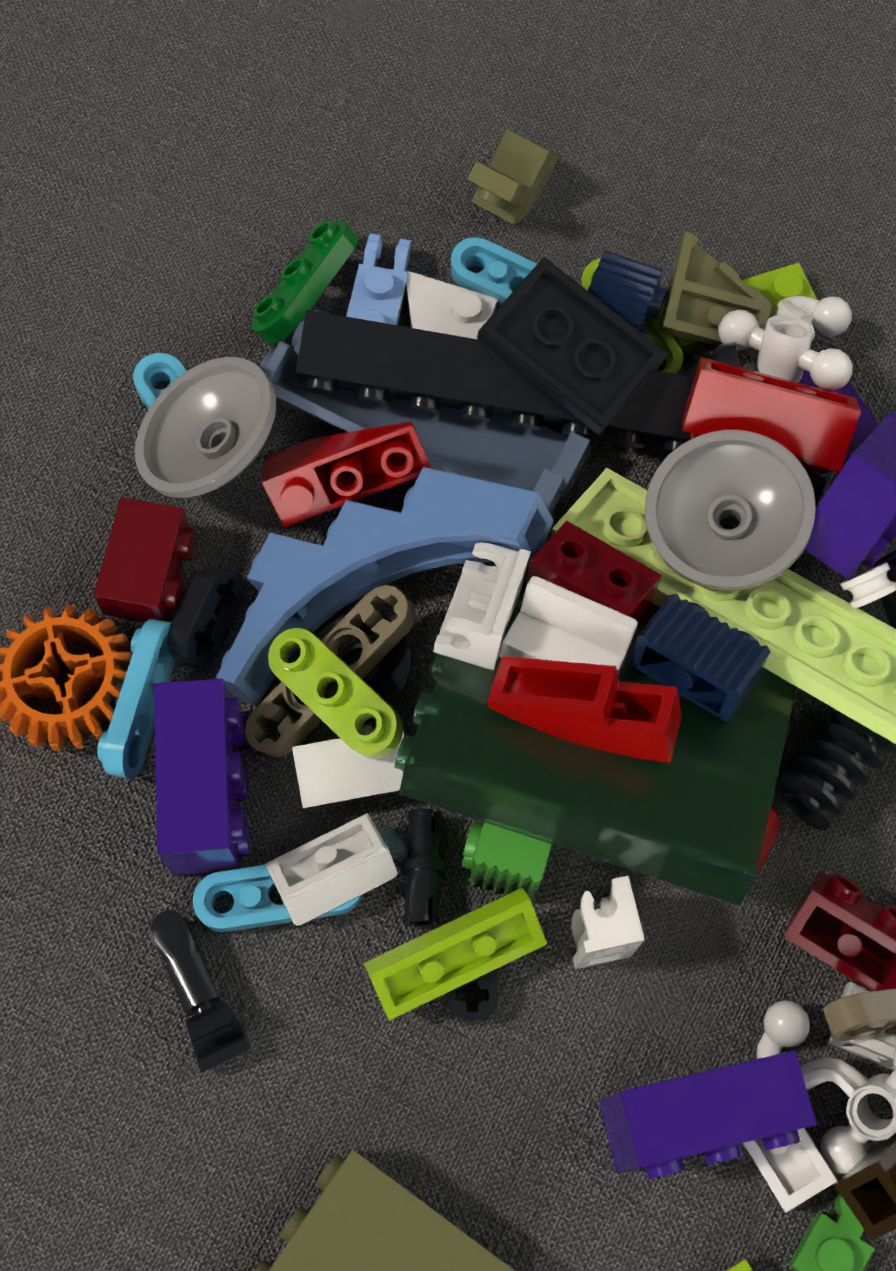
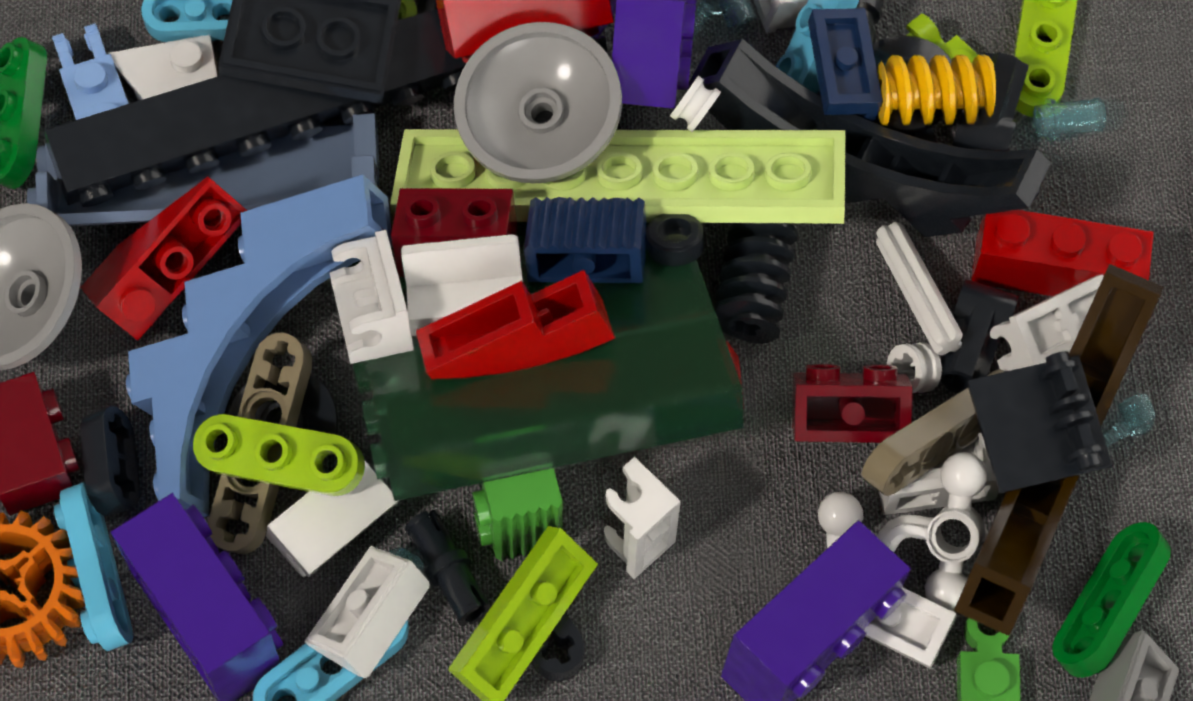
camera: 30 degrees left, 5 degrees down
(779, 698) = (674, 239): none -> black tile

